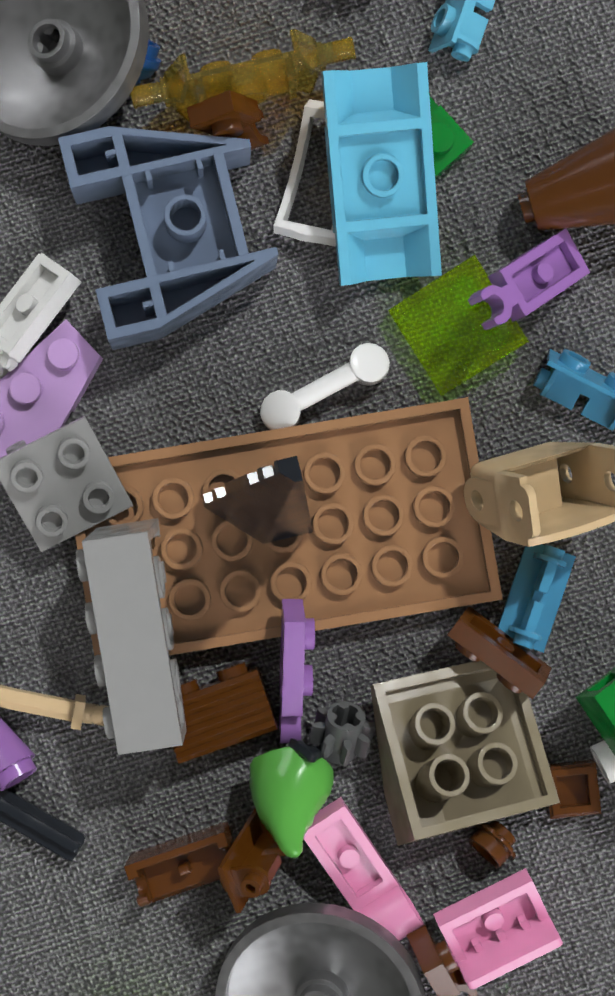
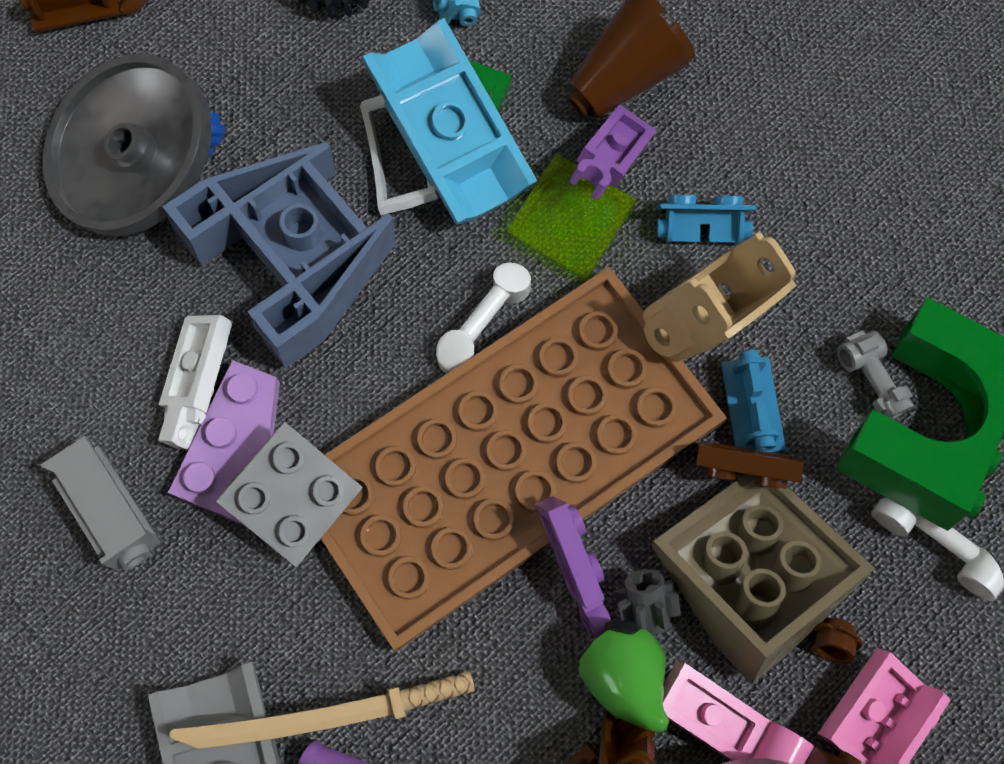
camera: 25 degrees left, 15 degrees down
(132, 637) = (418, 593): light grey wedge -> none
(225, 711) = (526, 638): reddish brown brick -> none
(228, 116) = (298, 130): reddish brown plate -> none
(263, 76) = (299, 103): clear yellow plate -> none
(265, 504) = (482, 402): black wedge -> none
(576, 789) = (884, 555): reddish brown tile -> none

